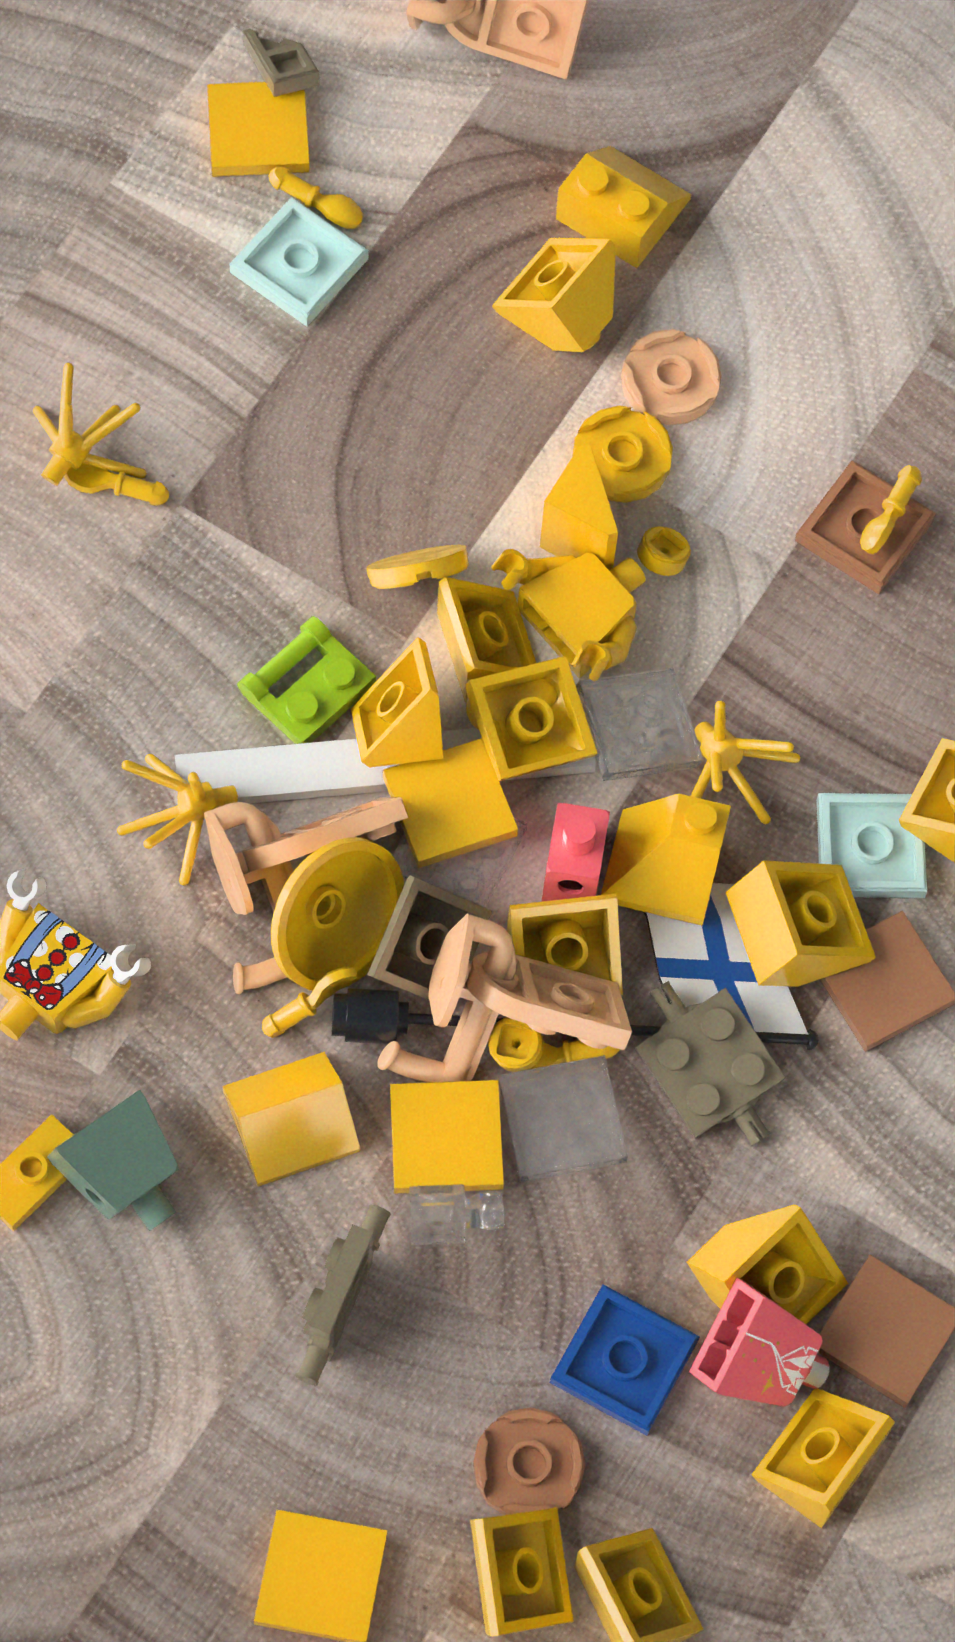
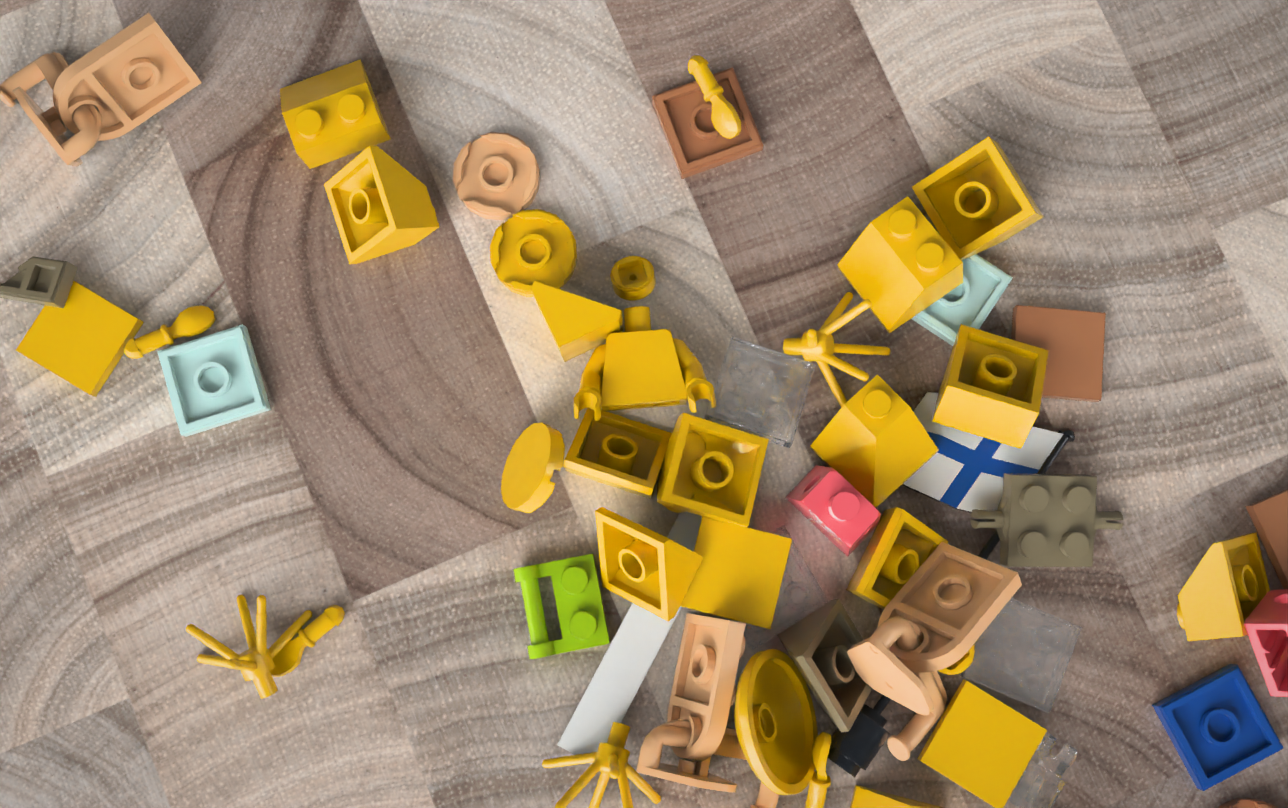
camera: 50 degrees left, 15 degrees up
(856, 771) = (901, 265): none -> yellow slope

